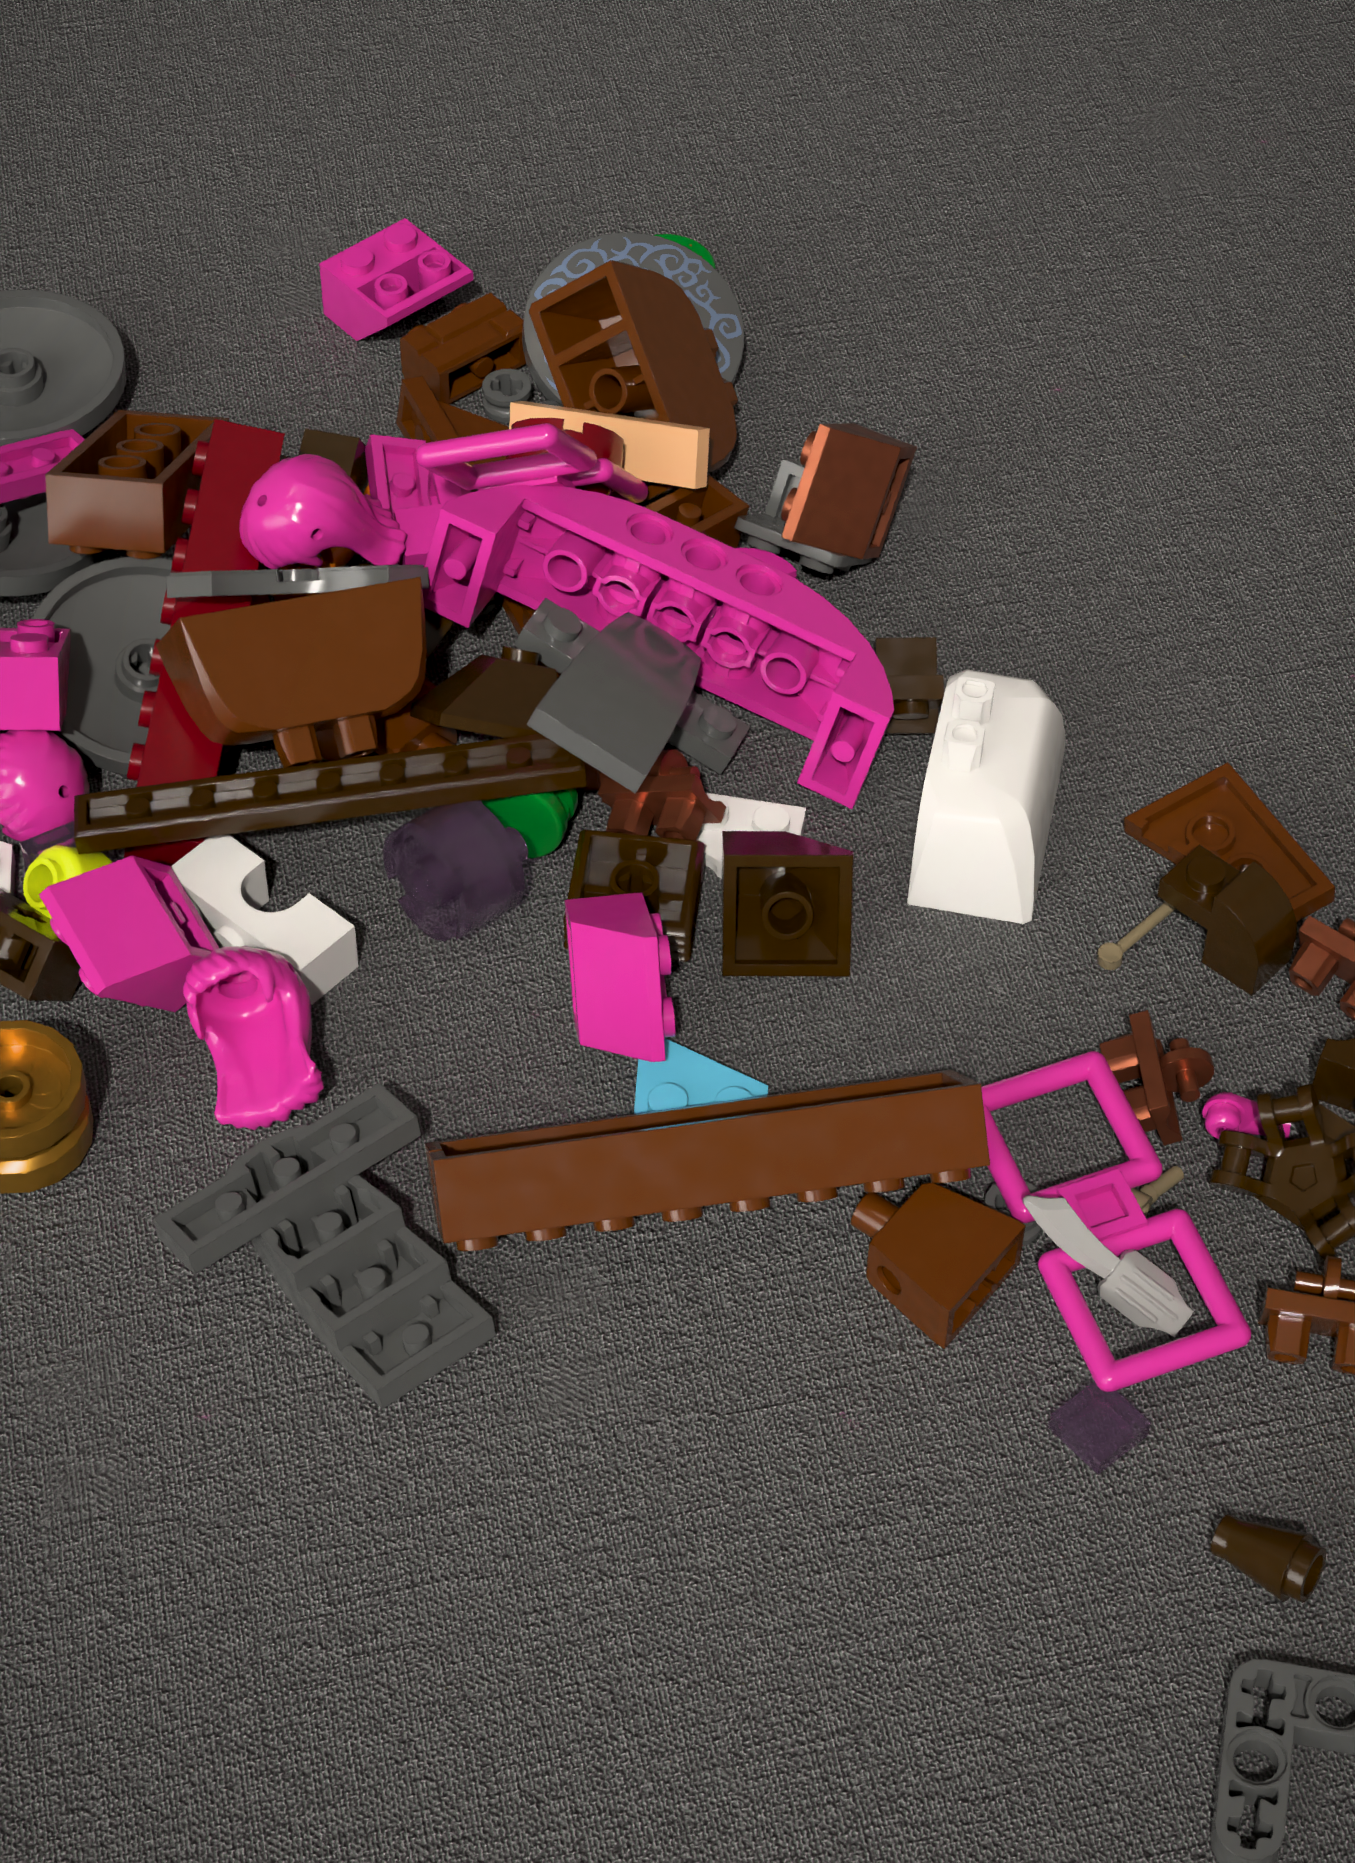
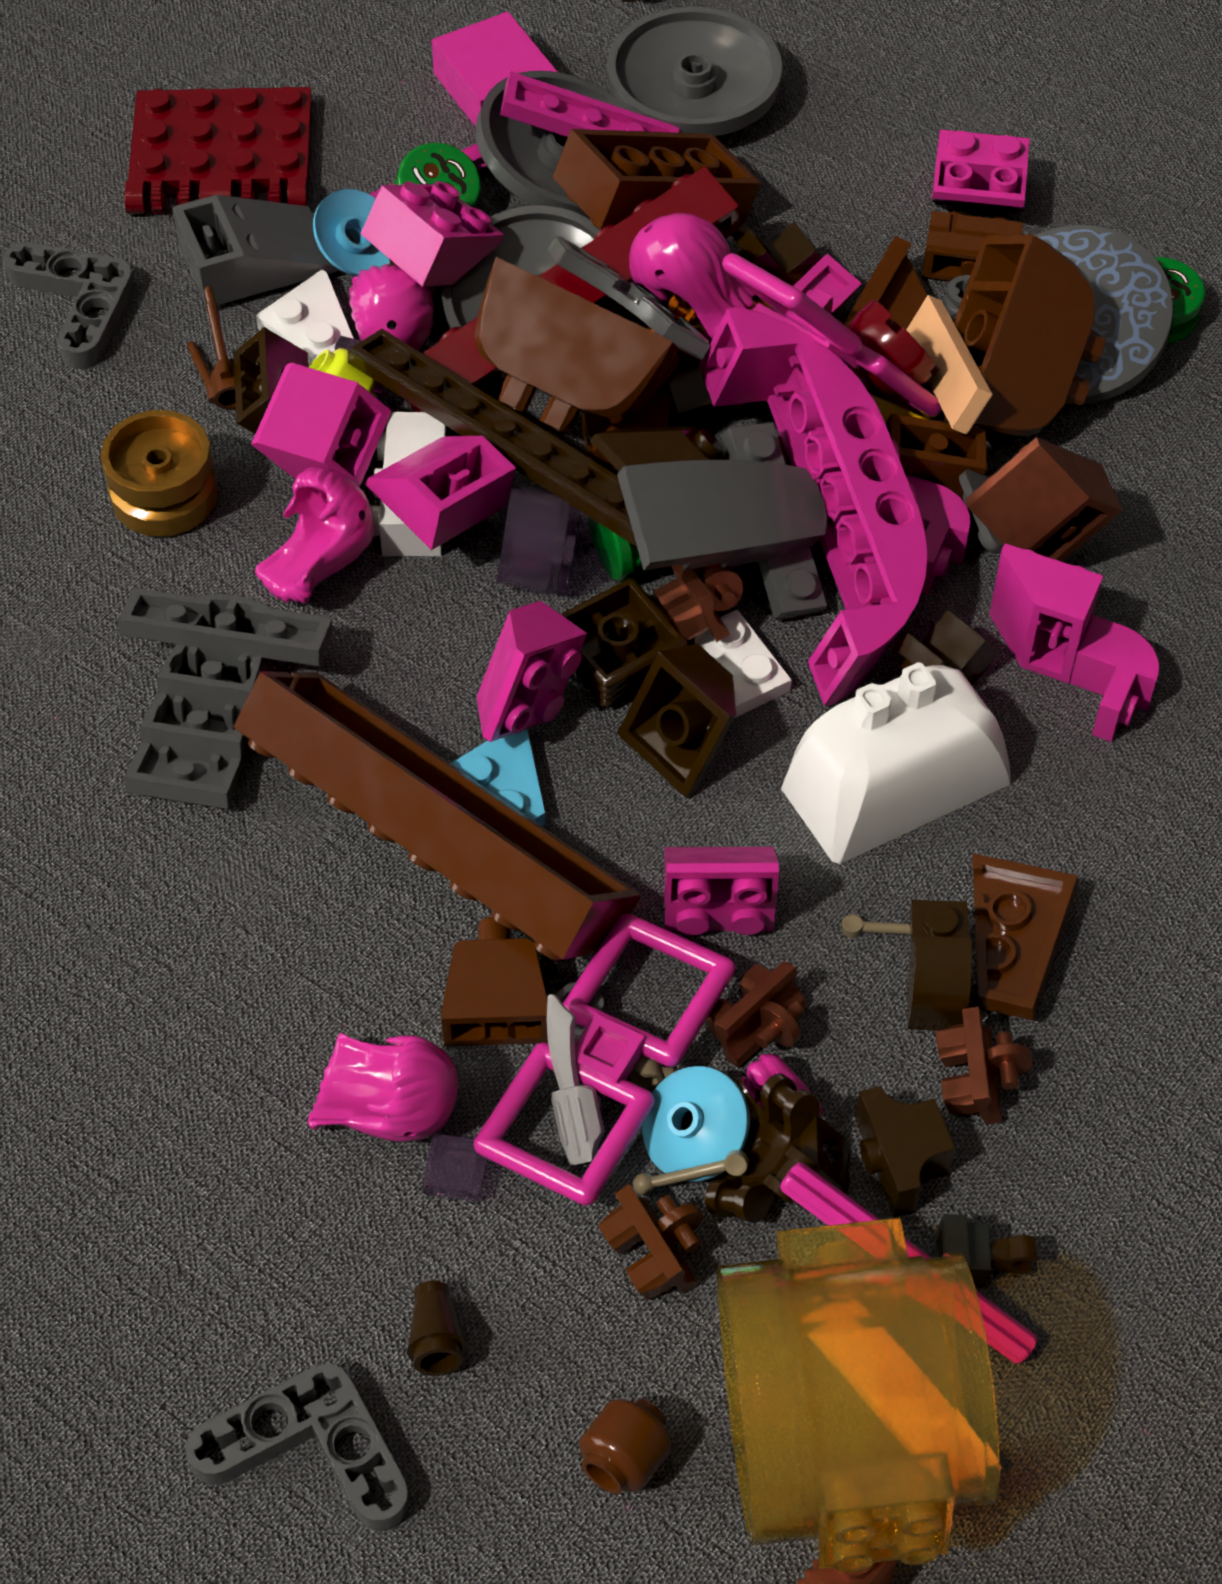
camera: 50 degrees right, 5 degrees up
(332, 878) = (445, 487): none -> dark pink slope
(937, 582) = (1043, 609): none -> dark pink slope
(975, 1414) = (387, 1089): none -> dark pink piece
(997, 1007) = (720, 889): none -> dark pink slope
(1037, 585) = (1120, 668): none -> dark pink brick
(1269, 1194) = (718, 1122): none -> medium azure dish
(1307, 1199) = (734, 1164): none -> dark tan hinge

